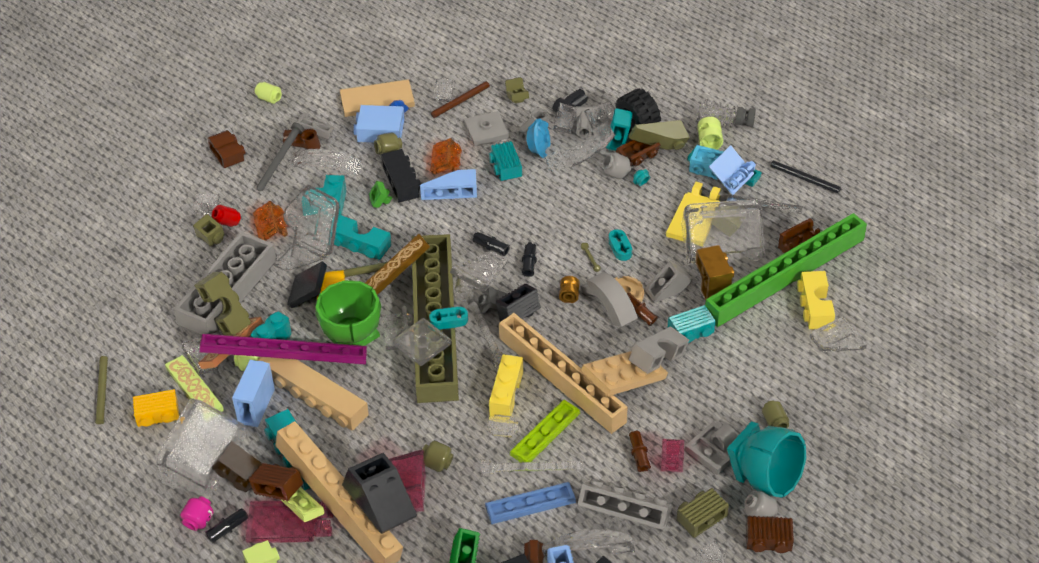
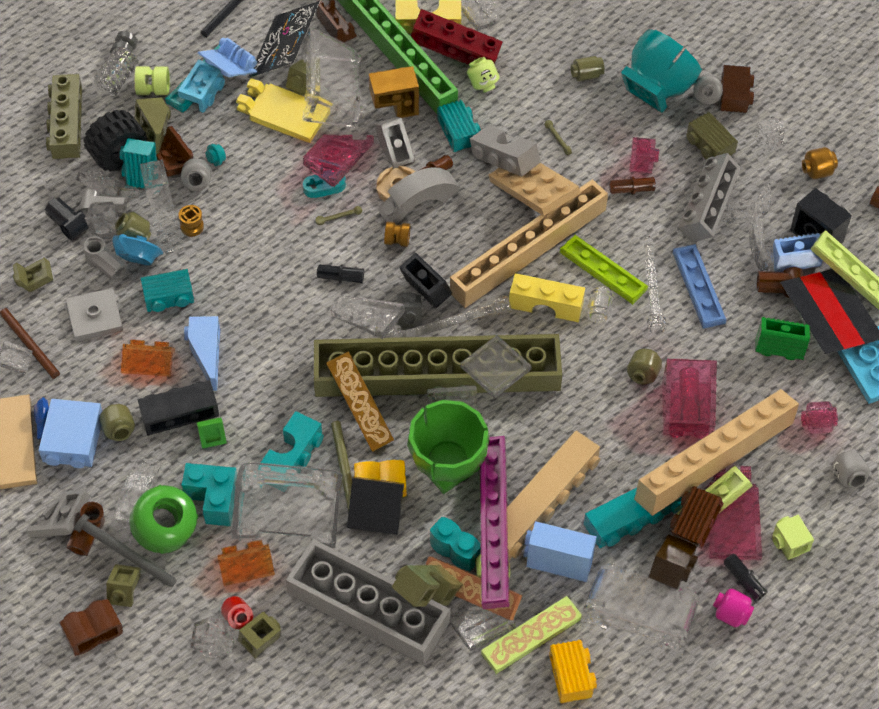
camera: 90 degrees left, 10 degrees up
(258, 160) = (122, 584): none -> olive bracket
(313, 175) = (153, 535): none -> bright green piece
(379, 492) = (729, 397): black slope -> none
(449, 318) = (456, 338): teal beam -> none
(491, 243) = (311, 311): black axle -> none
(560, 136) = (133, 225): none -> olive head
(572, 168) = (191, 220): none -> pearl gold wheel
(643, 244) = (335, 156): none -> clear pink wing
(674, 91) = (65, 116): none -> olive brick
(678, 405) = (549, 125): none -> olive hinge
(711, 446) = (626, 119): light grey plate -> none
(750, 337) = (483, 74): none -> yellowish green head
(784, 313) = (453, 39): none -> dark red brick

